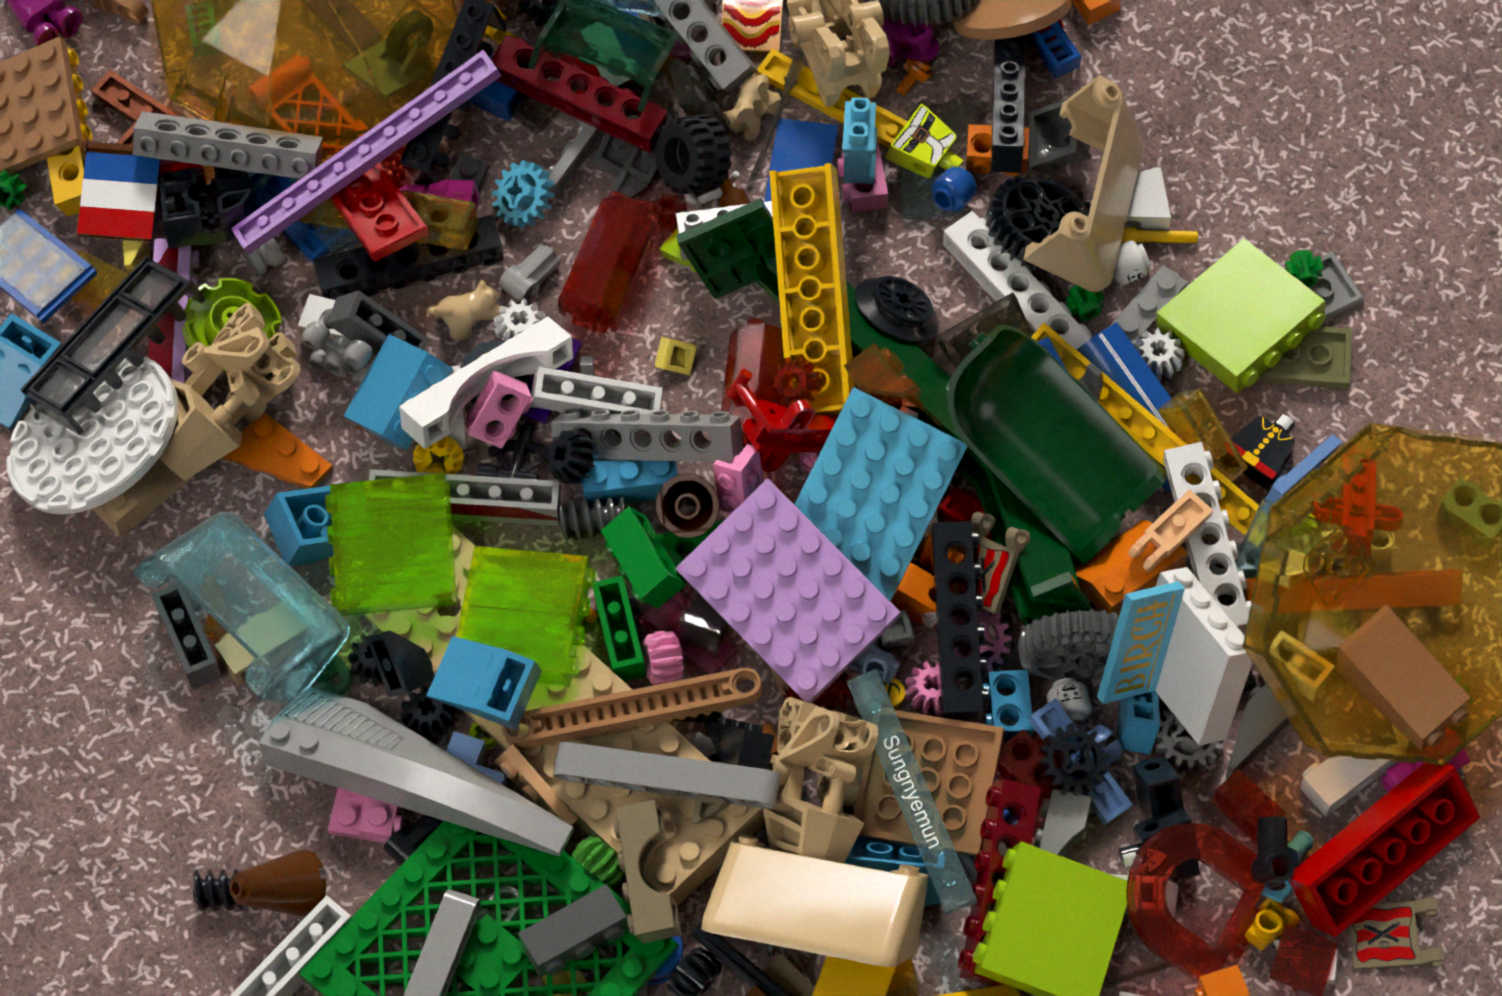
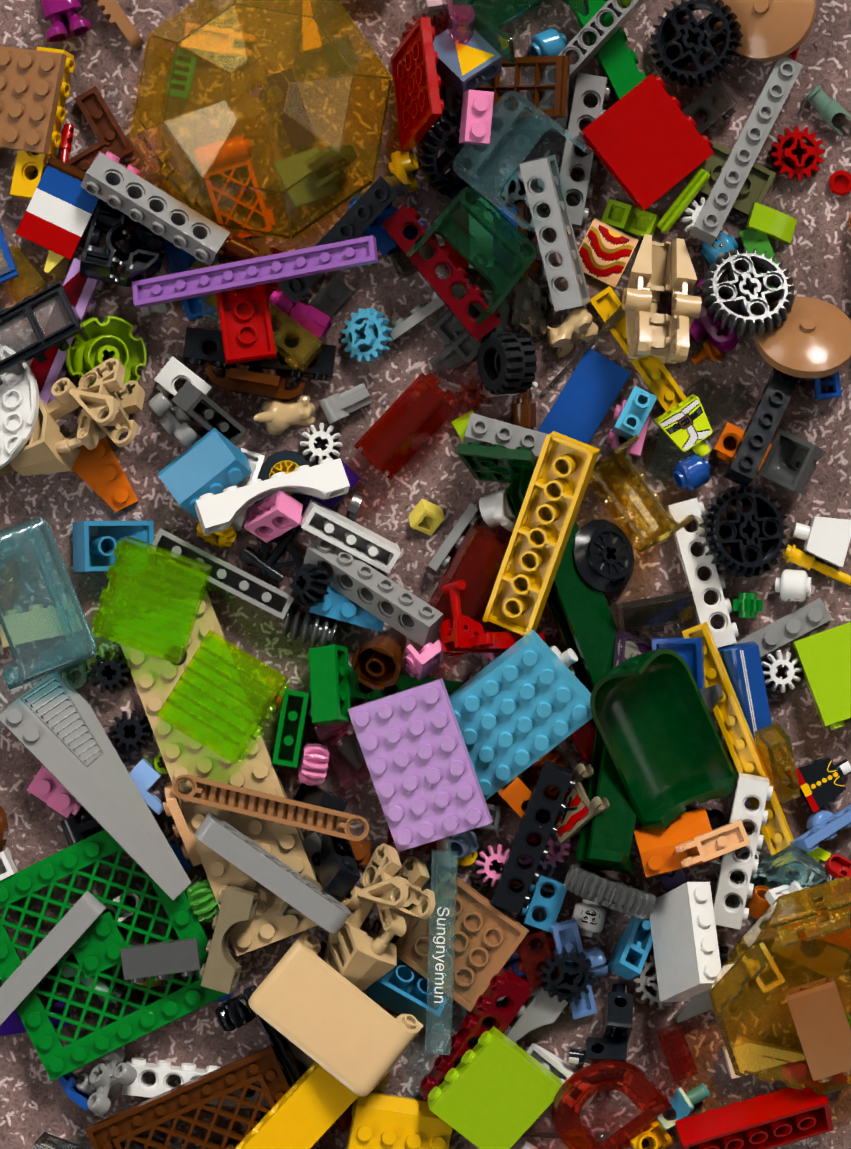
camera: 25 degrees right, 25 degrees up
(97, 131) = (66, 142): none -> red pin
(400, 663) = (123, 696): black slope -> none
(419, 285) = (258, 384): none -> reddish brown plate
(485, 681) = (171, 748): dark azure slope -> none
(716, 364) = (454, 538): none -> light grey plate
(755, 303) = (497, 510): none -> white piece
(802, 374) = (492, 597): clear red gear -> none
(880, 376) = (559, 634): clear orange slope -> none
(895, 239) = (631, 500): none -> clear yellow windscreen
(1089, 245) = (834, 495): tan windscreen -> none
(1140, 642) = (650, 921): medium azure tile -> none
(1272, 850) = (670, 1107): black piece -> none

